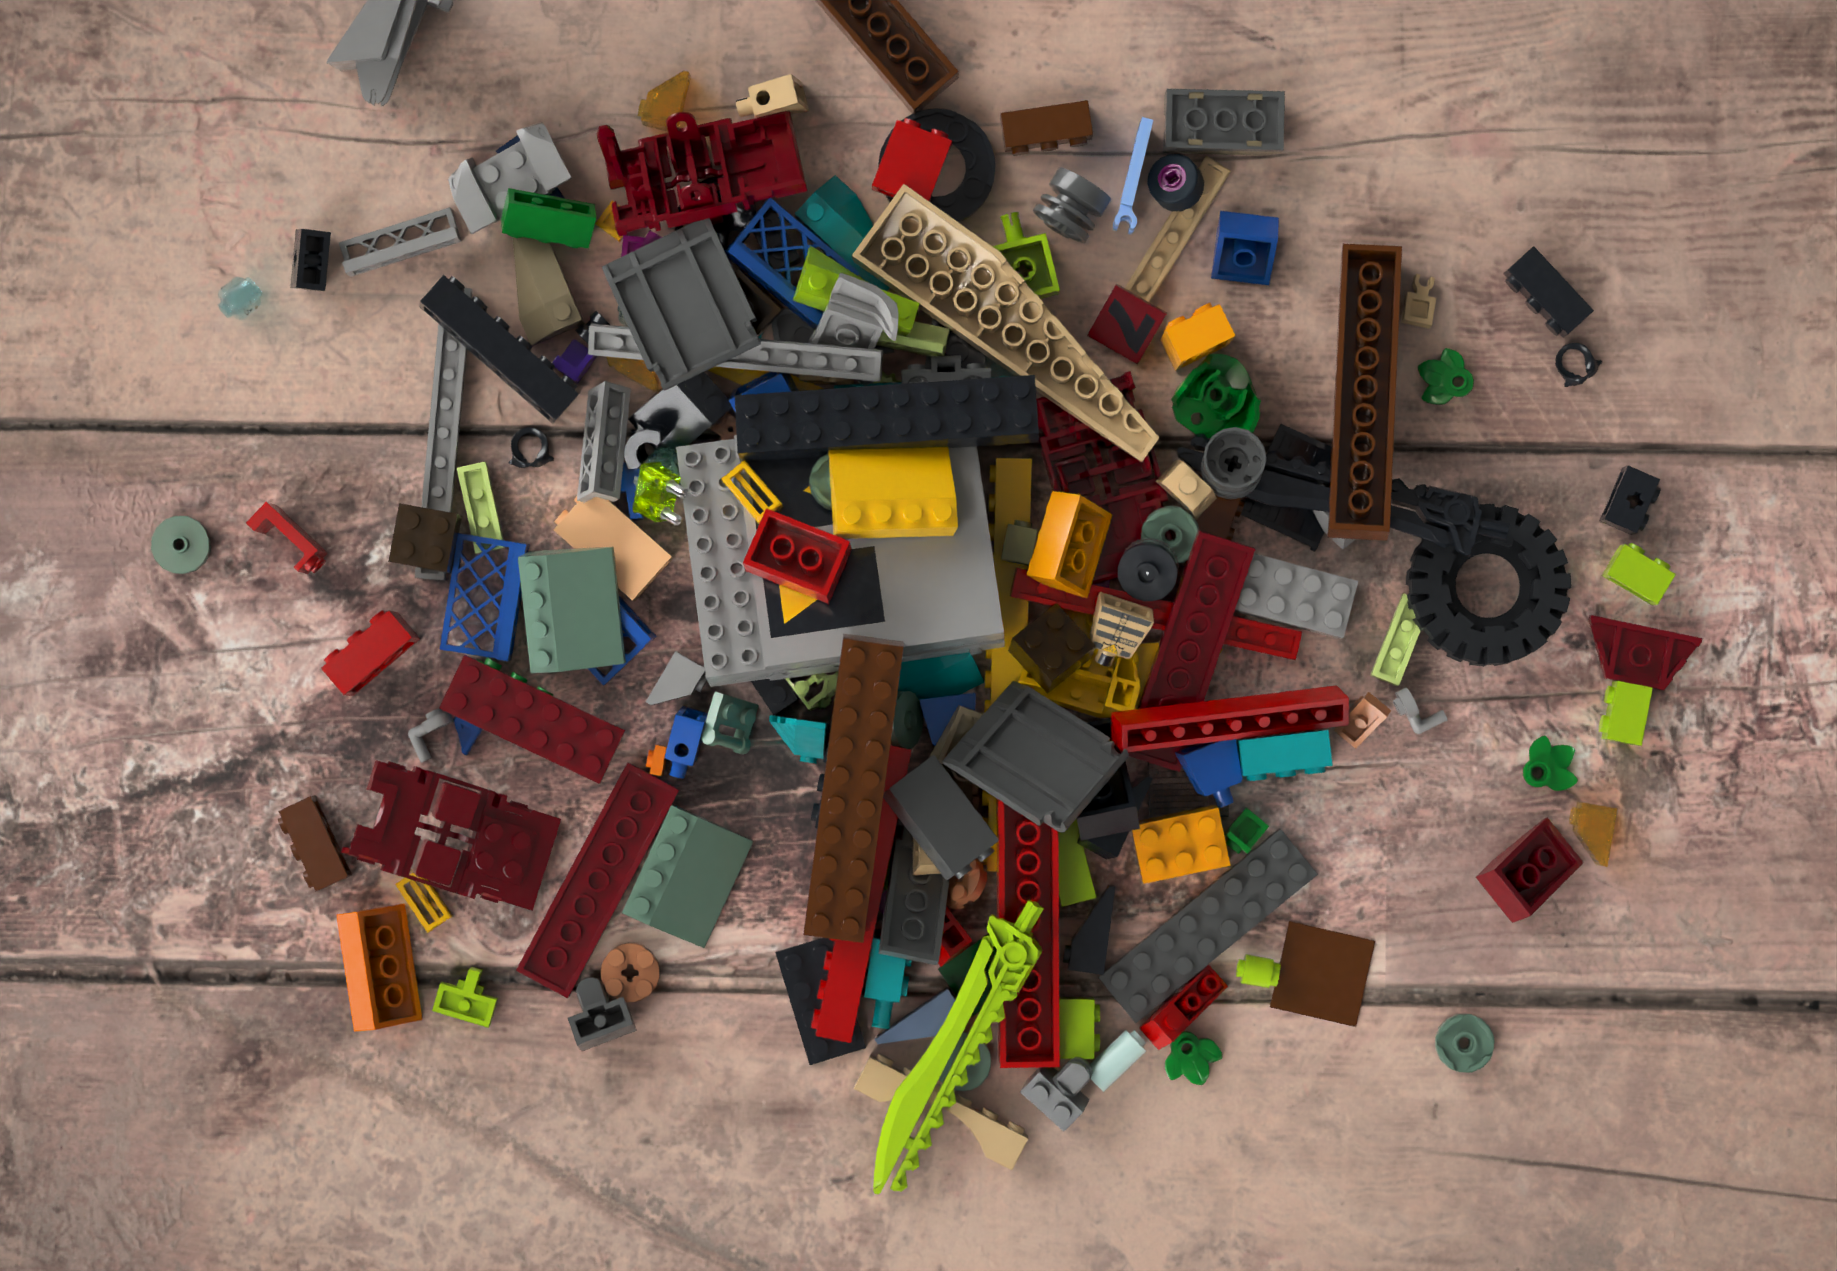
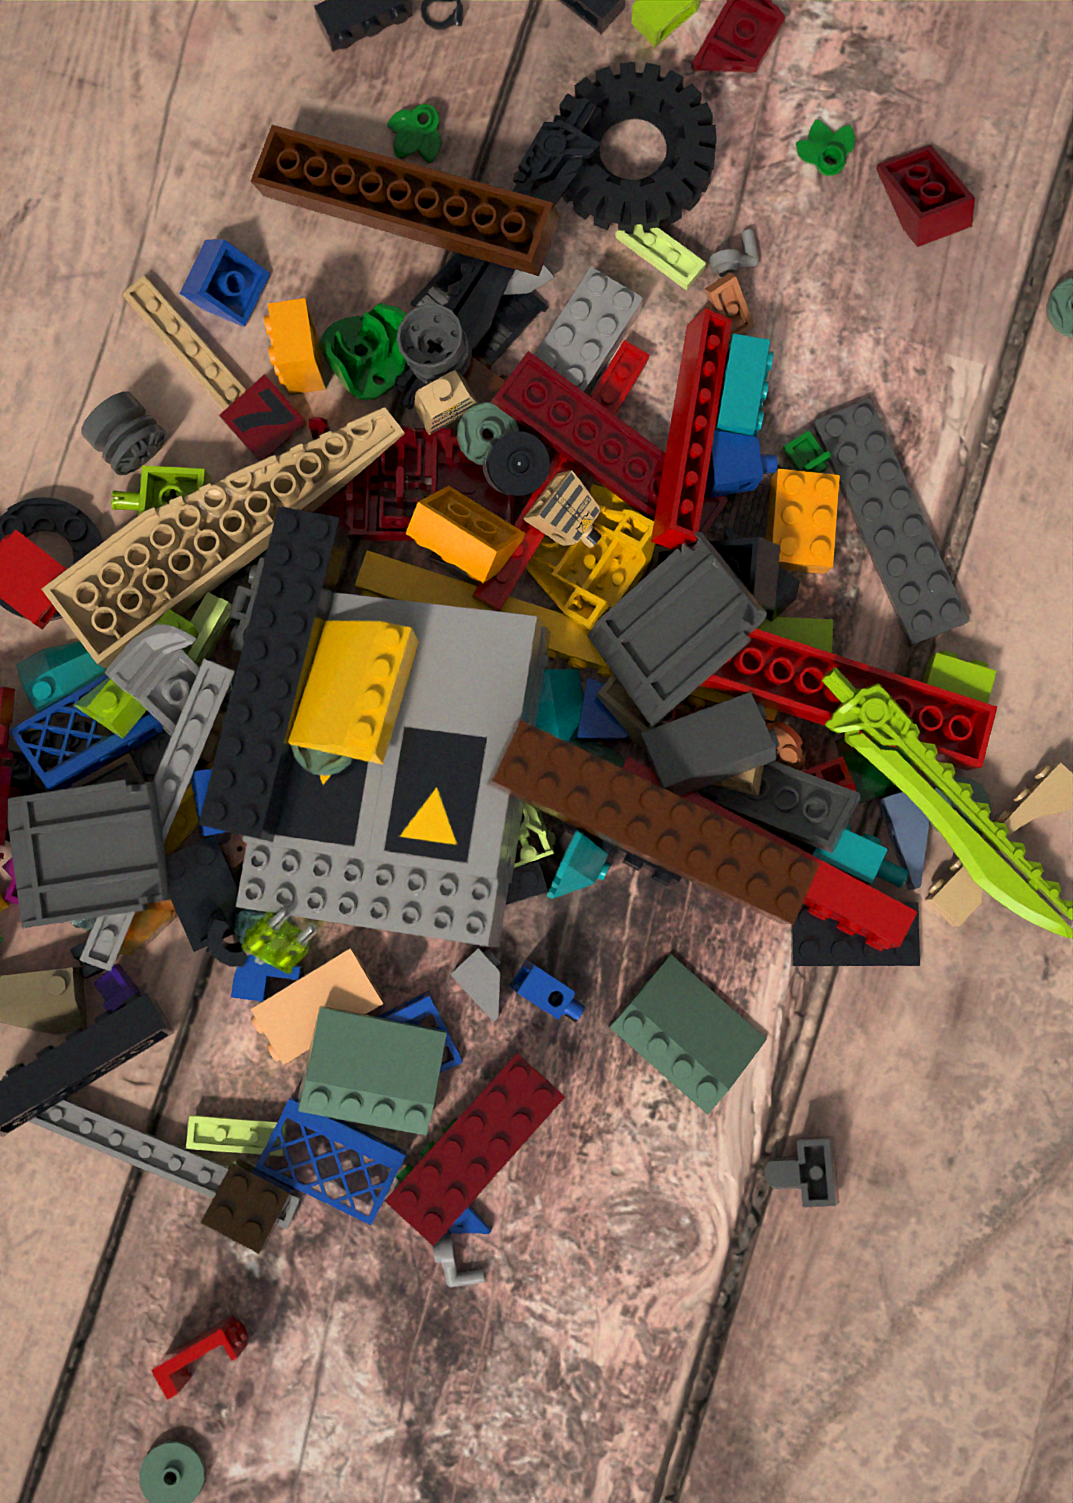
camera: 80 degrees left, 5 degrees down
(314, 843) = (536, 1426): reddish brown brick -> none
(369, 652) = (350, 1304): red brick -> none
(379, 967) = (689, 1395): orange slope -> none
(415, 908) = (625, 1311): yellow tile -> none
(466, 1000) = (750, 1310): lime hinge -> none
(505, 849) = (609, 1225): dark red piece -> none
(543, 456) = (198, 1080): black piece -> none
(597, 880) = (665, 1131): dark red plate -> none
(604, 442) = (209, 983): light grey fence -> none
(618, 960) = (787, 1116): nougat plate -> none
(656, 760) = (557, 1028): orange plate -> none
(732, 713) = (533, 933): sand green plate -> none
(777, 505) = (333, 827): yellow tile -> none
(797, 556) = (388, 807): red brick -> none
(1019, 543) = (448, 585): olive brick -> none
(1046, 127) = (39, 438): reddish brown brick -> none
(1051, 648) = (566, 583): dark brown brick -> none
(1059, 1092) = (1020, 716): brick -> none
(1091, 939) = (869, 637): black slope -> none
(1117, 1059) = (1001, 651): light aqua brick -> none
(1125, 208) = (115, 364): light blue tile -> none
(1180, 192) = (146, 321): black wheel -> none
(1183, 1008) = (968, 570): red slope -> none
(1194, 1061) = (1022, 577): green plate -> none
(1224, 122) = (92, 262): dark grey piece -> none
(1258, 971) = (951, 484): lime brick -> none
(1322, 974) = (969, 425): reddish brown piece -> none
(1418, 306) = (336, 131): tan plate -> none
(1594, 829) = (904, 122): clear yellow slope -> none
(1625, 712) = (797, 59): lime piece -> none

